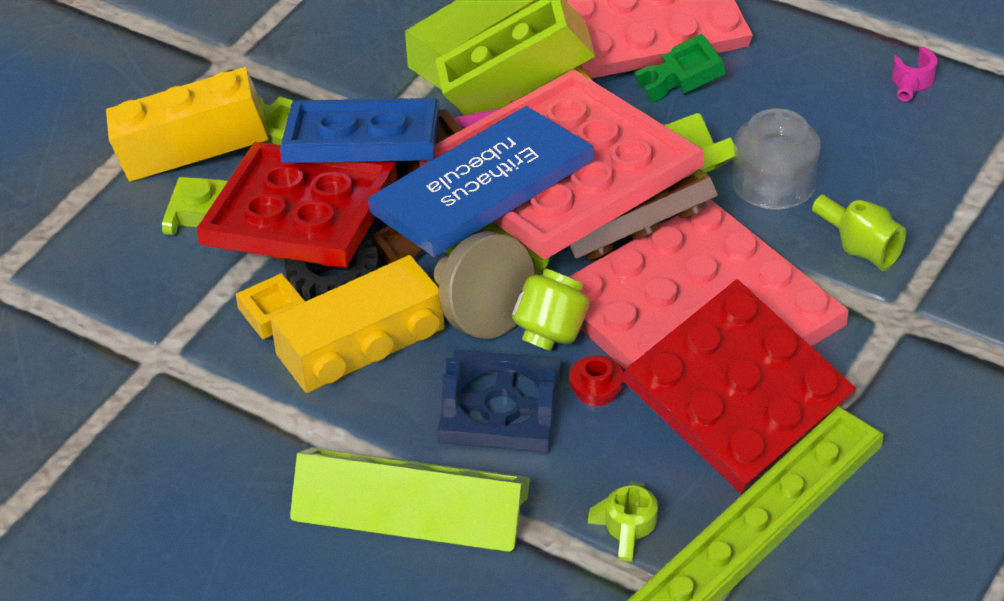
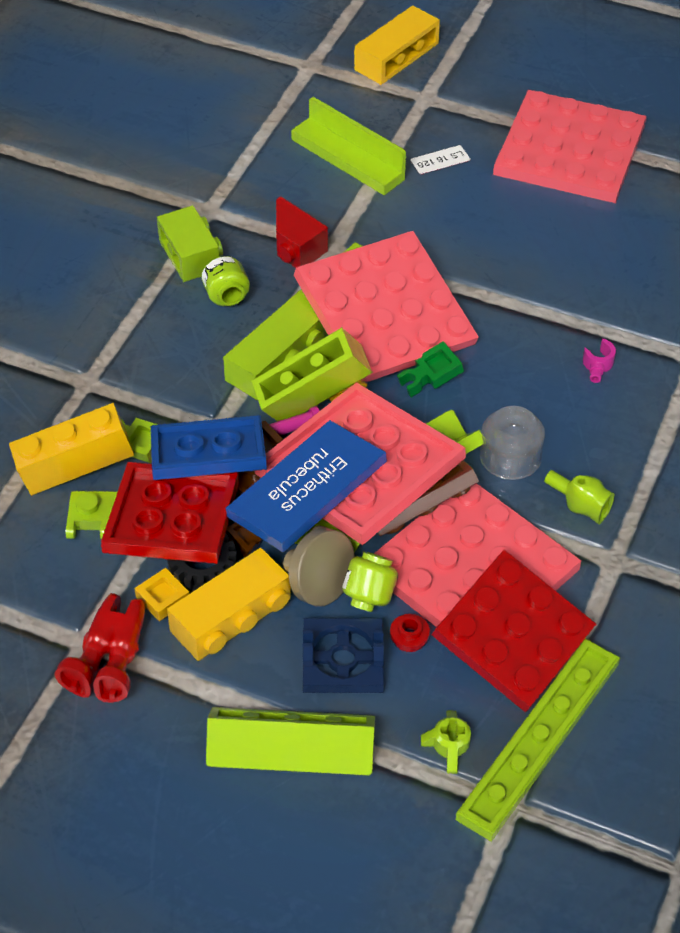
camera: 10 degrees left, 5 degrees up
(195, 348) = (112, 635): none -> red piece

